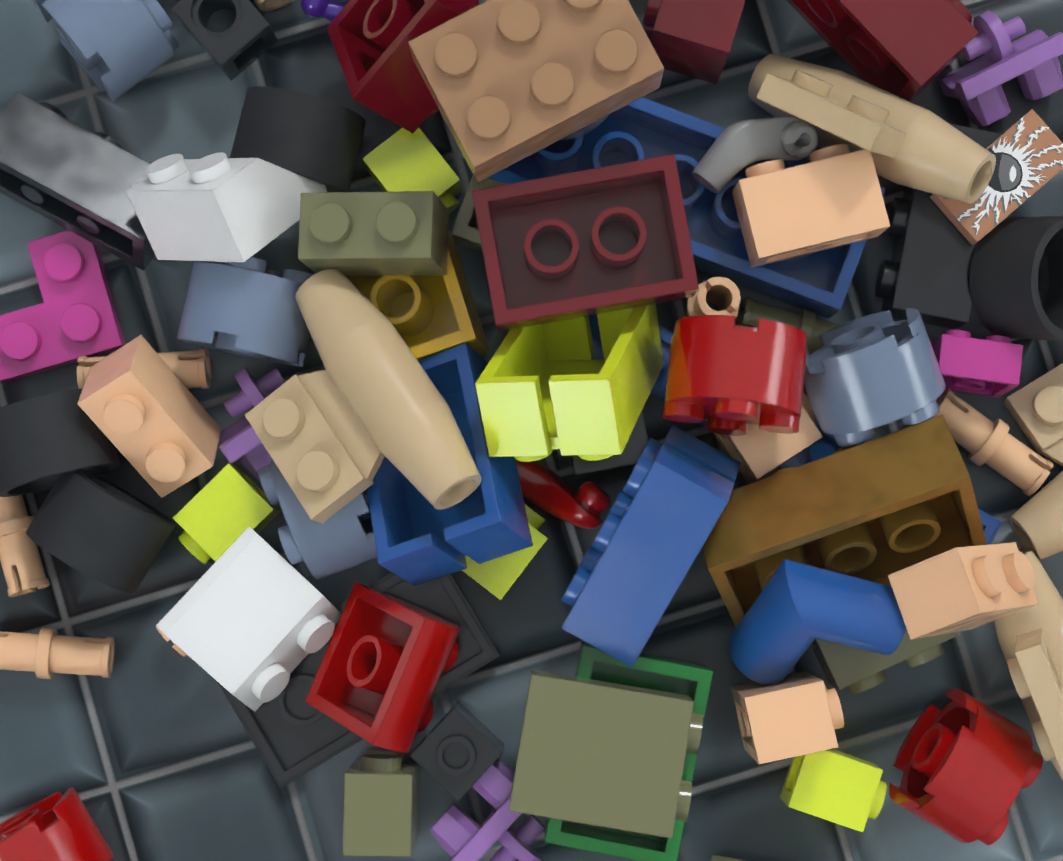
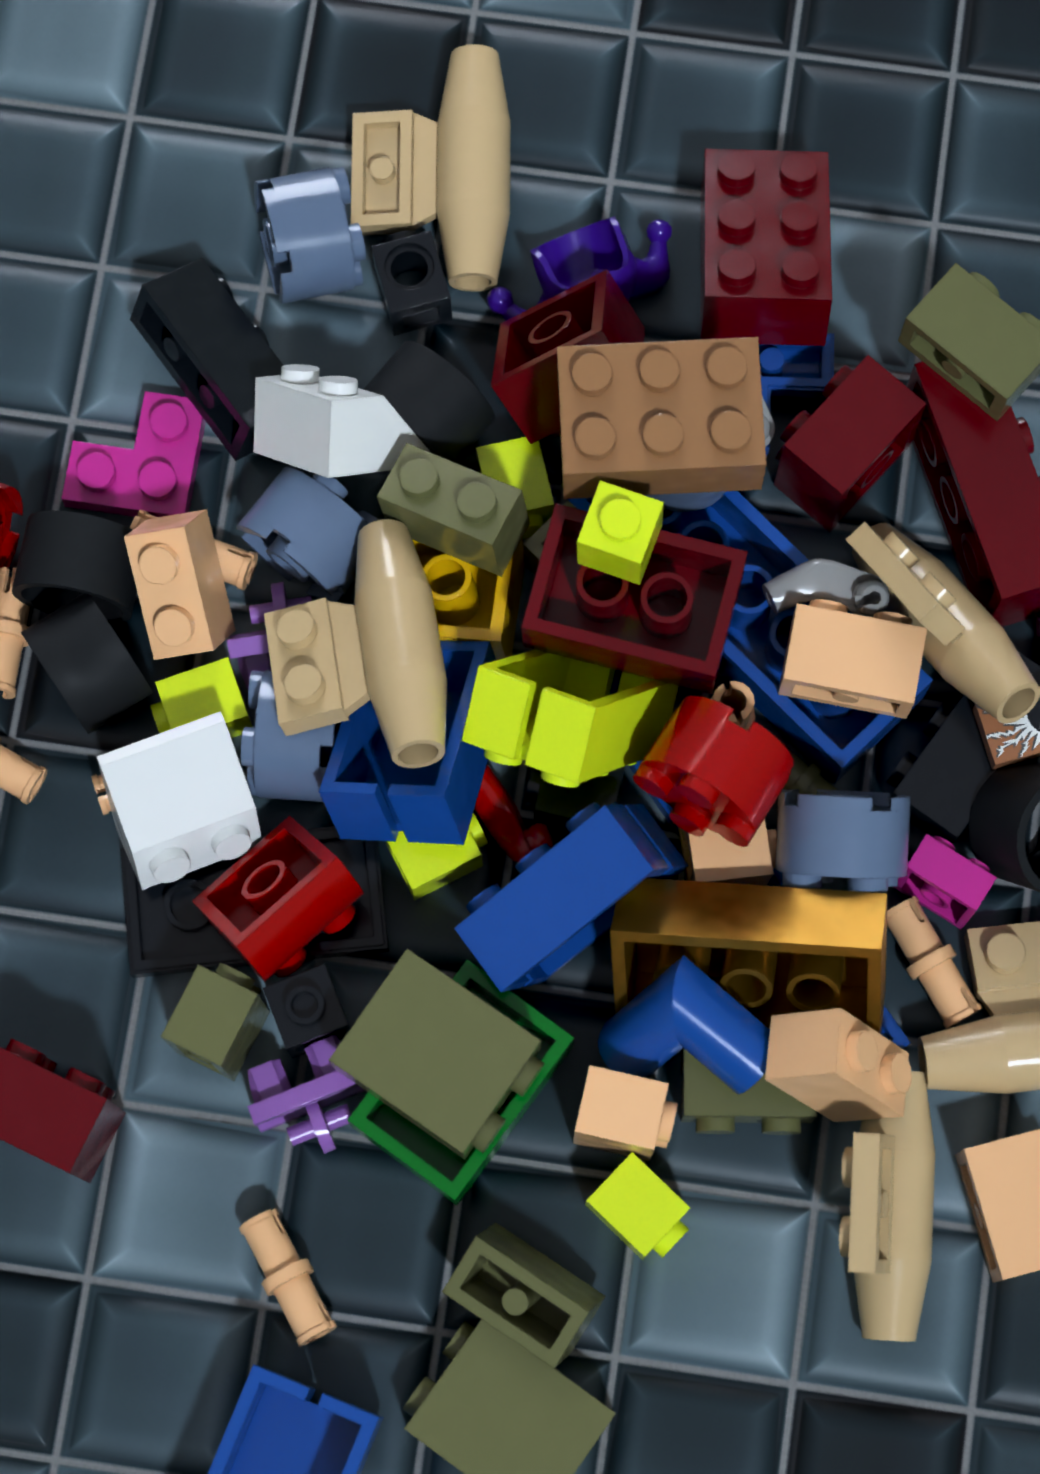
camera: 25 degrees right, 10 degrees down
(551, 195) = (619, 532): none -> neon yellow brick
(964, 768) = (767, 1243): red brick -> none

